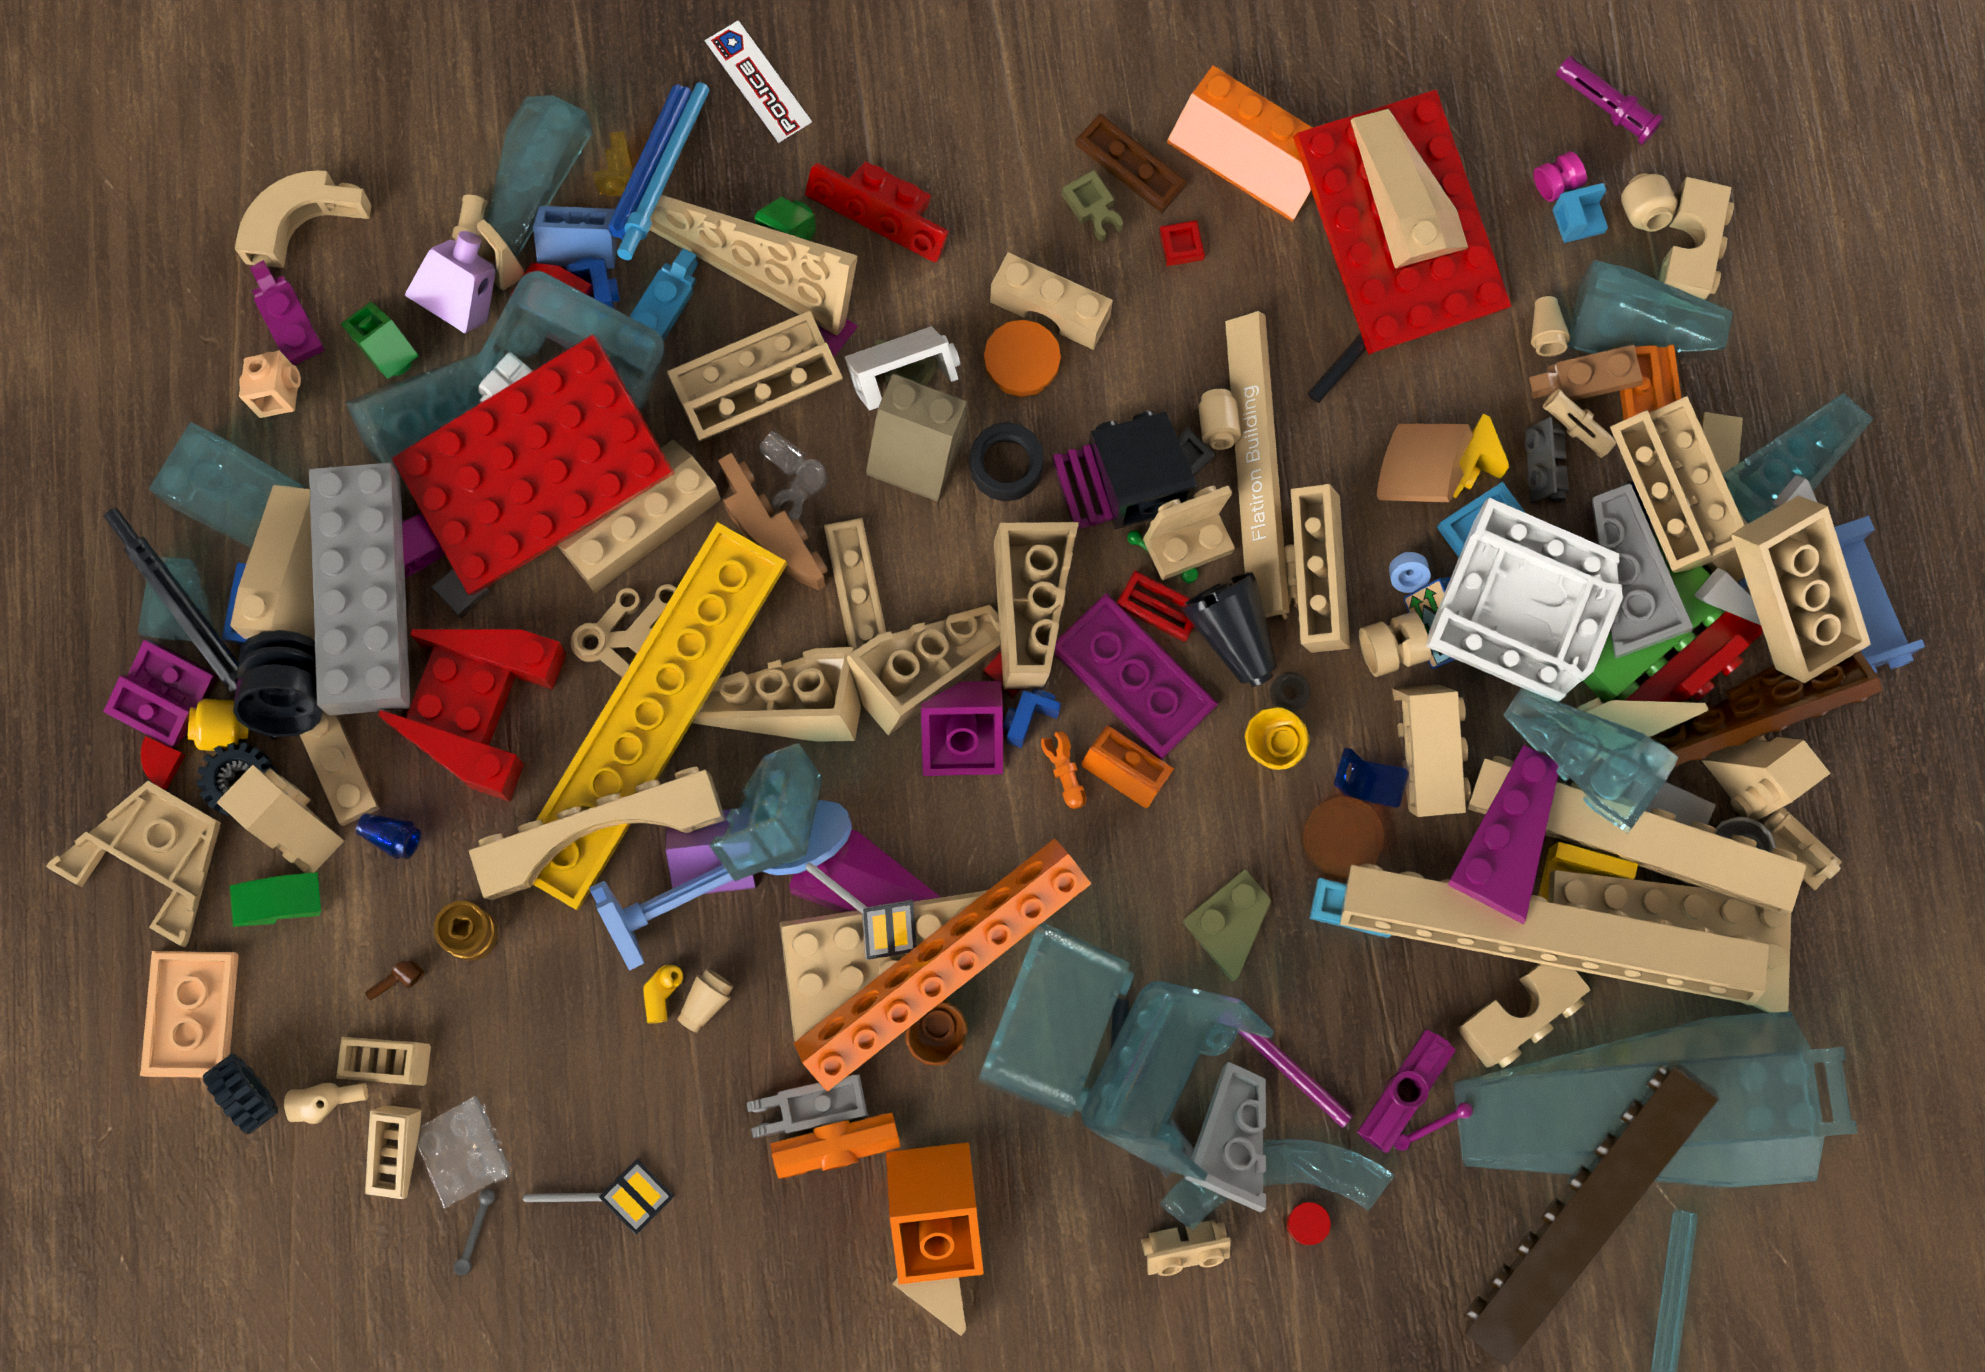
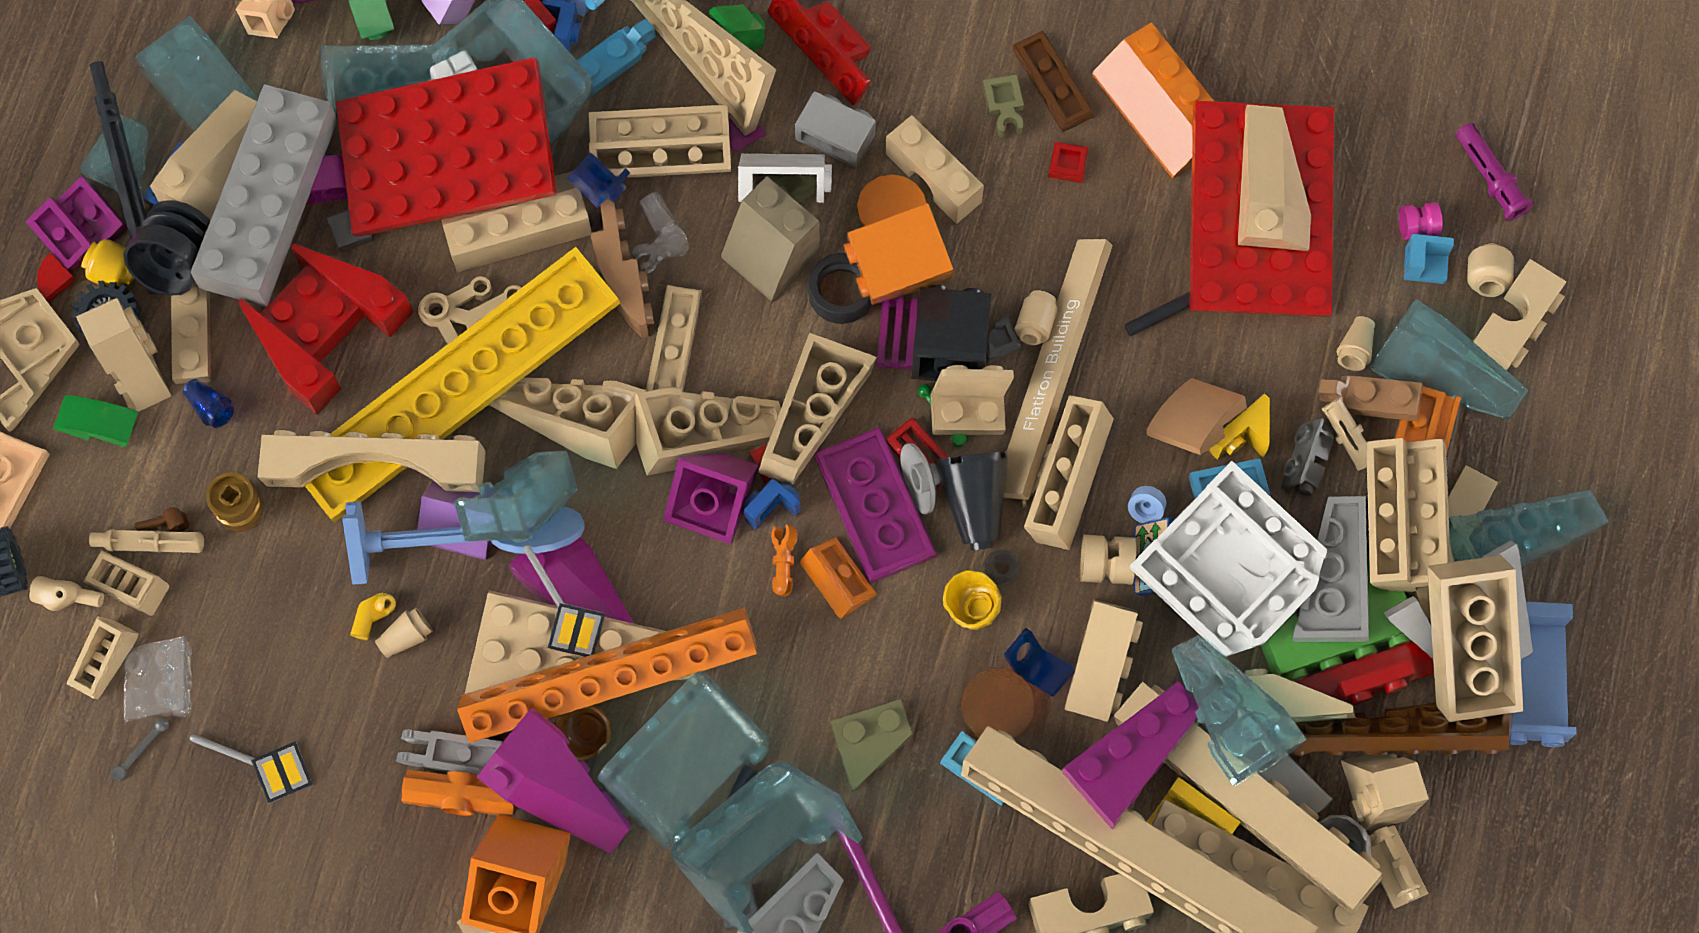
camera: 25 degrees right, 5 degrees down
(388, 1007) = (148, 541): none -> tan piece
(711, 443) = (597, 181): none -> clear blue bracket
(922, 1098) = (547, 780): none -> magenta wedge
(930, 294) = (835, 129): none -> light grey brick
(1058, 405) = (899, 255): none -> orange slope
(1172, 632) = (919, 477): none -> light grey dish

